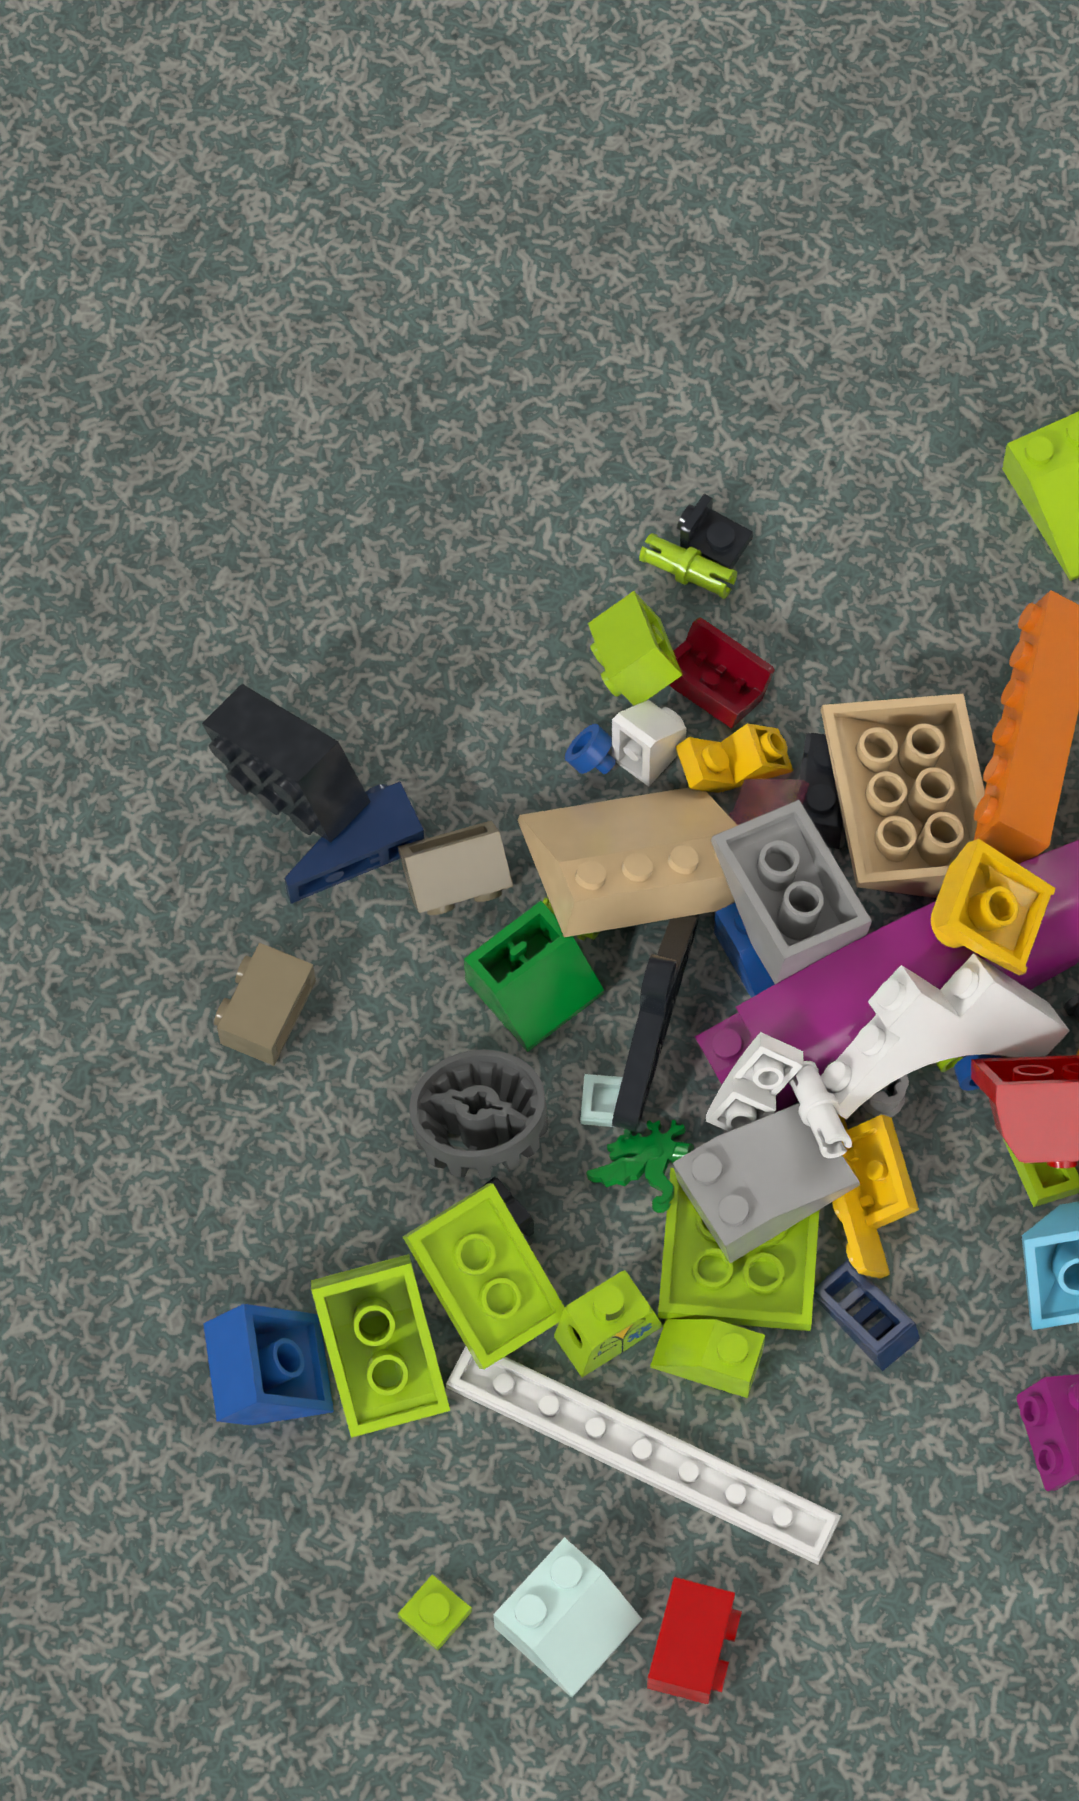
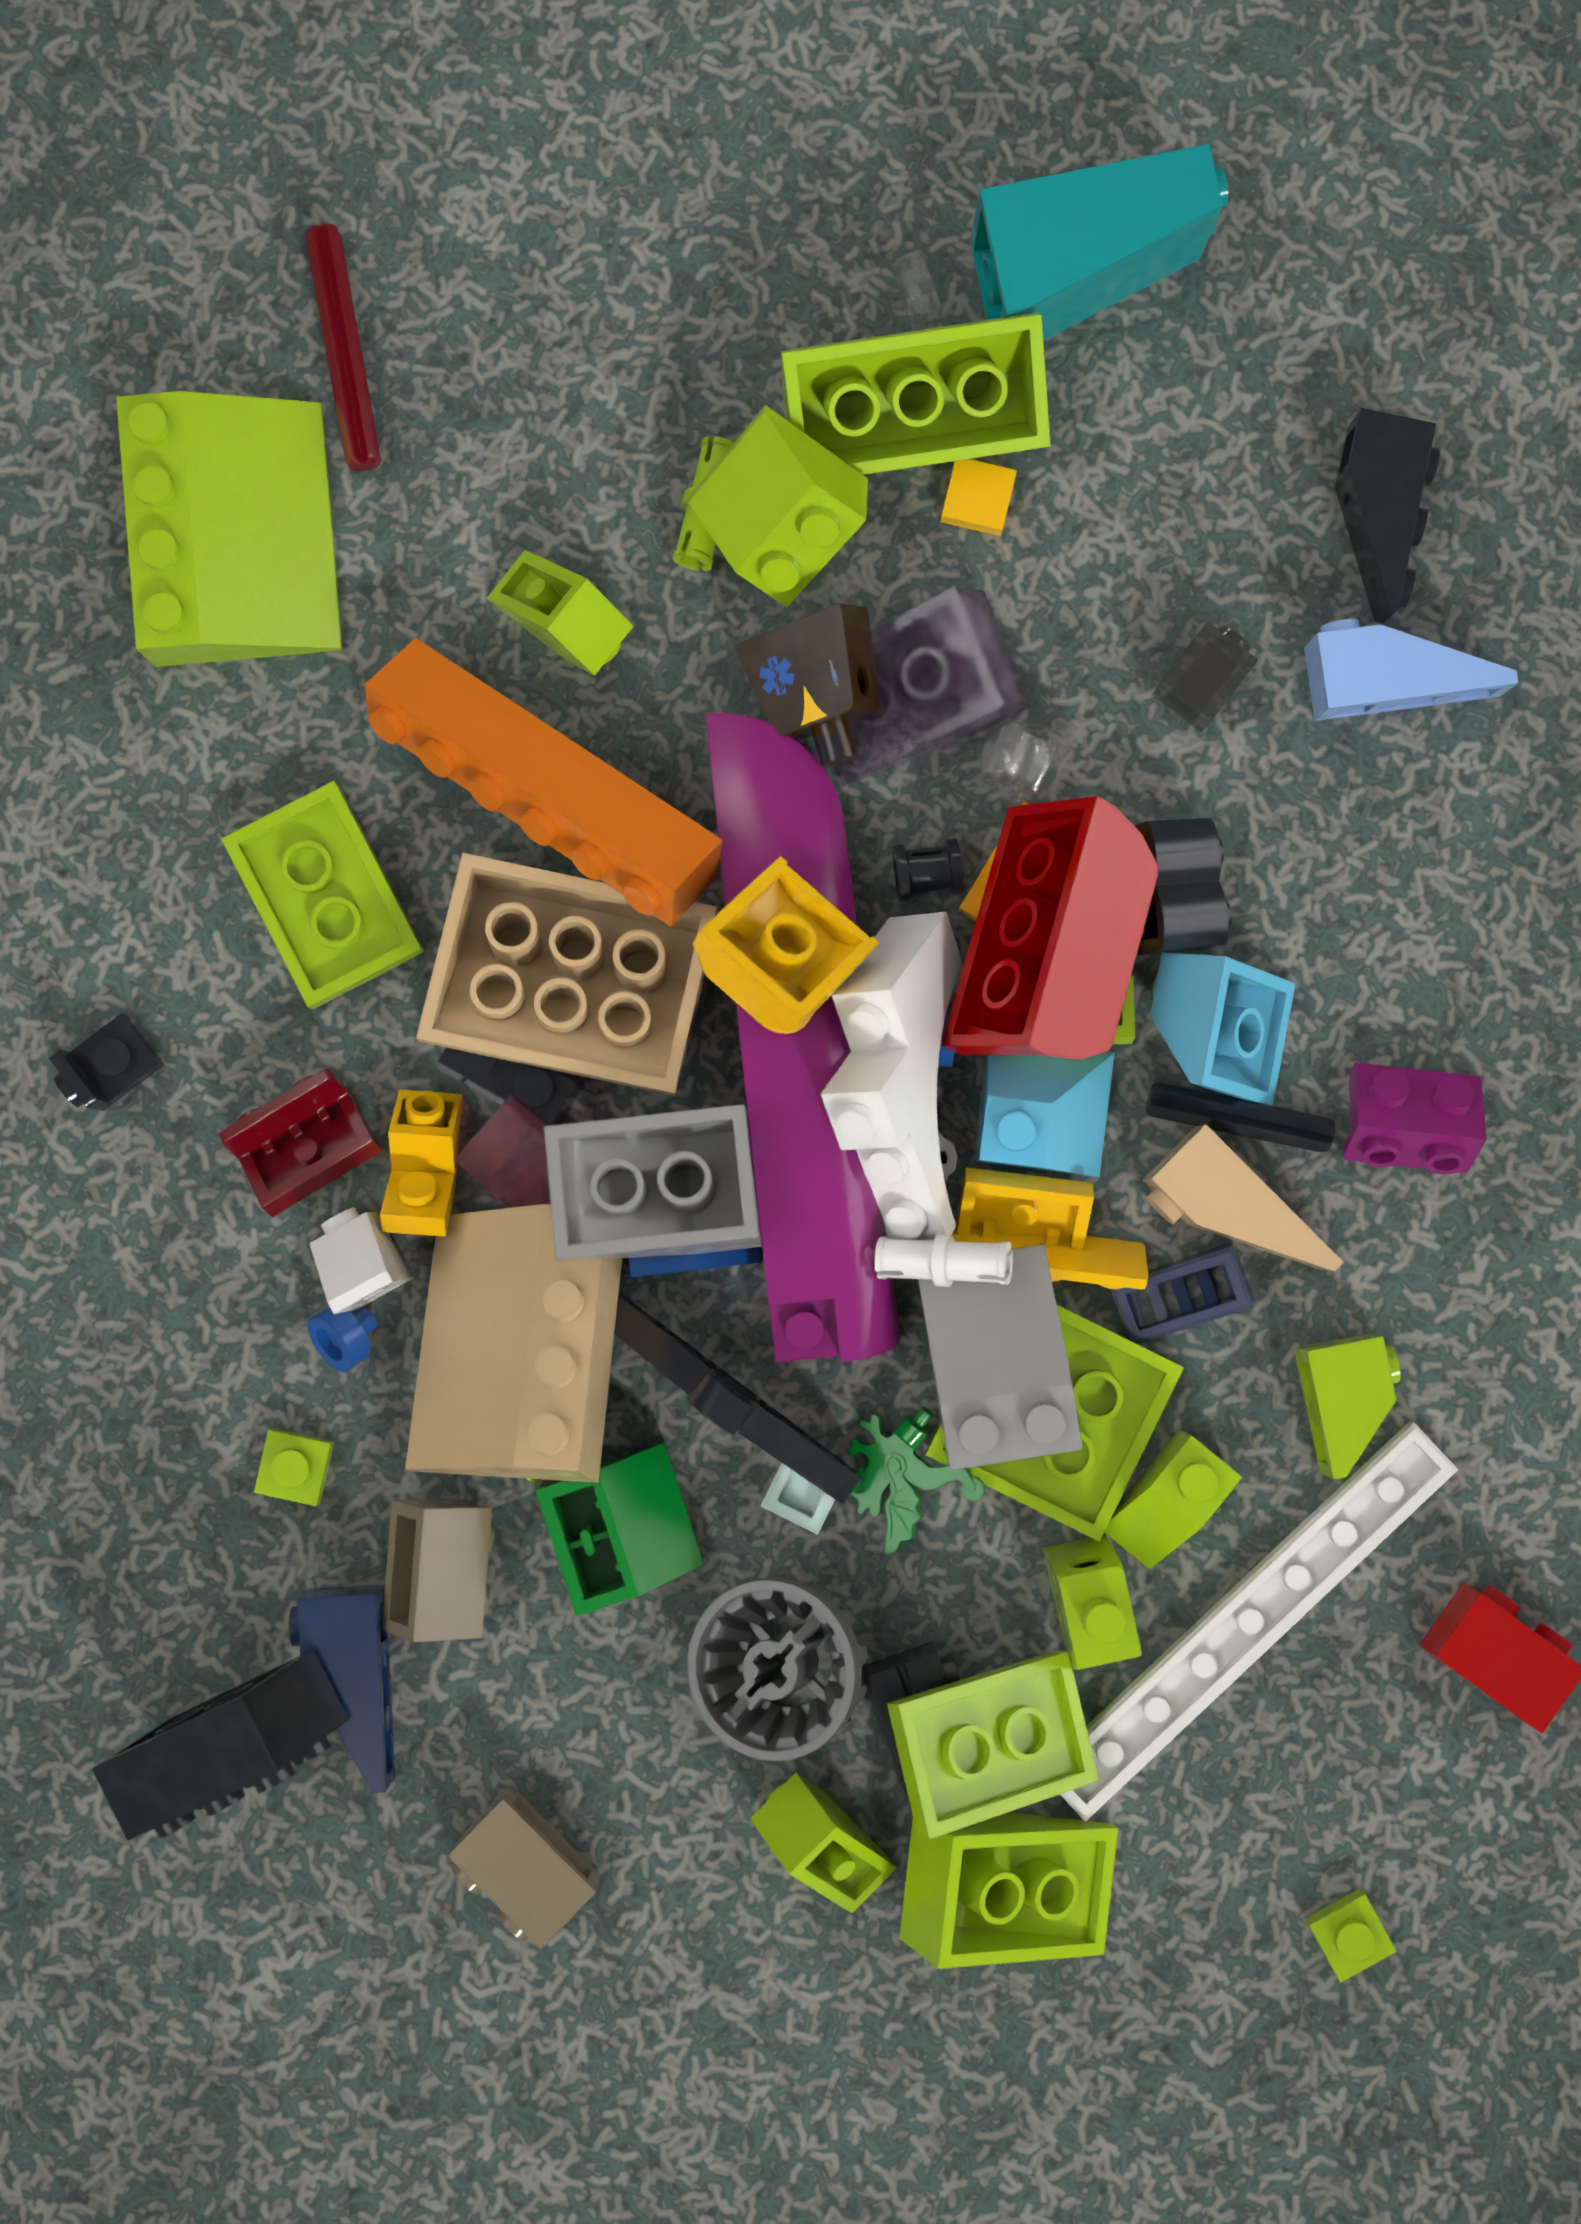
camera: 75 degrees left, 20 degrees up
(267, 1365) = (990, 2037): blue slope -> none
(358, 1202) = (821, 1843): none -> lime slope
(484, 756) = (294, 1467): none -> lime plate
(567, 1617) = (1420, 1792): light aqua slope -> none
(633, 650) = (234, 1235): lime brick -> none
(688, 565) = (135, 1113): lime pin -> none
(754, 1083) = (879, 1326): white slope -> none
(840, 1452) = (1346, 1396): none -> lime slope
(892, 627) = (323, 895): none -> lime plate
(948, 1307) = (1221, 1195): none -> tan slope
(956, 1161) = (1044, 1112): none -> medium azure slope
(1014, 1306) = (1240, 1117): none -> black axle

